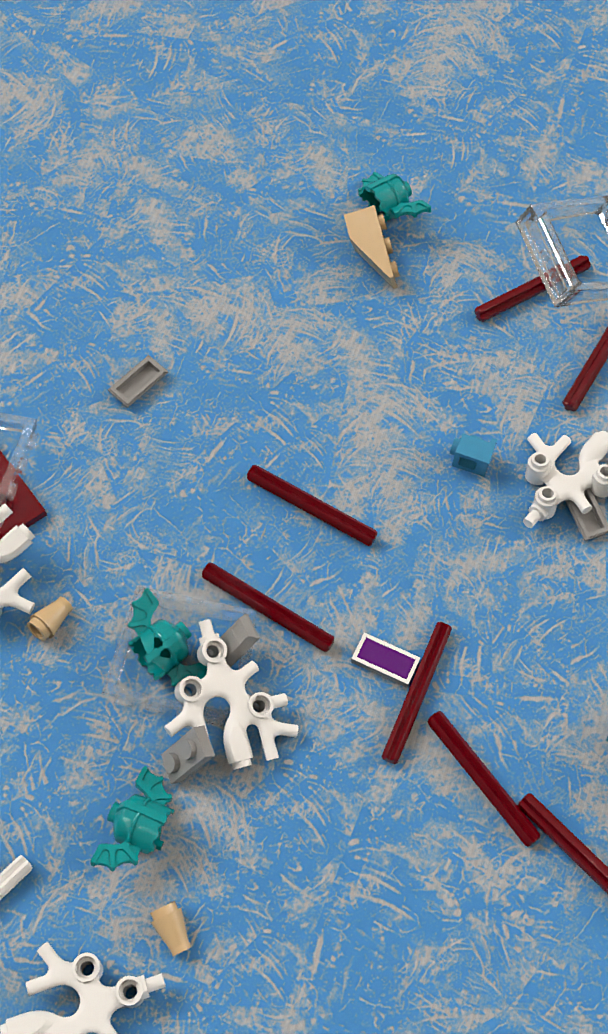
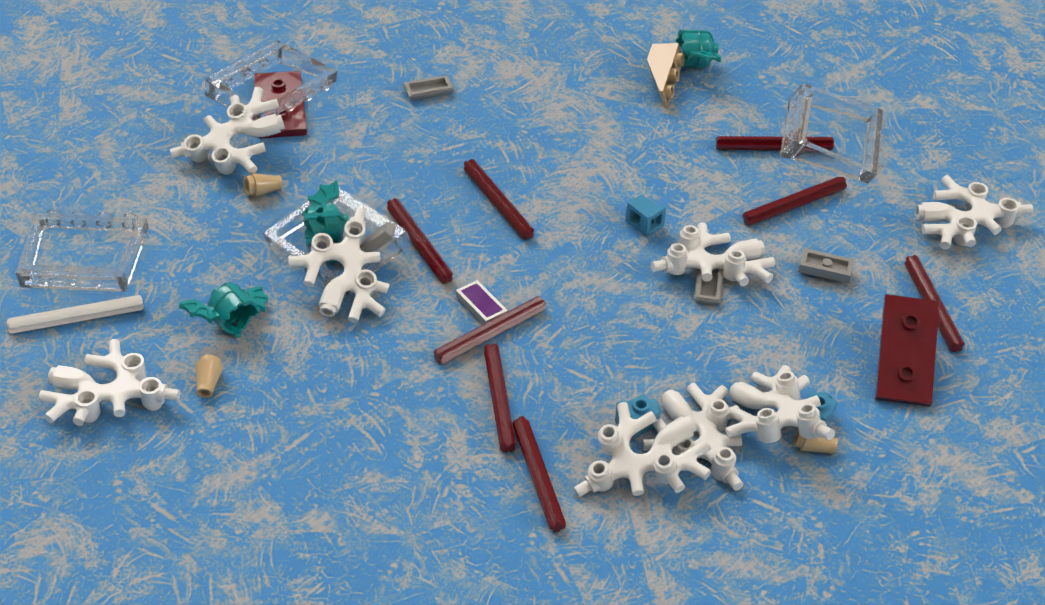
camera: 30 degrees right, 20 degrees down
(187, 754) = (293, 284): light grey plate -> none

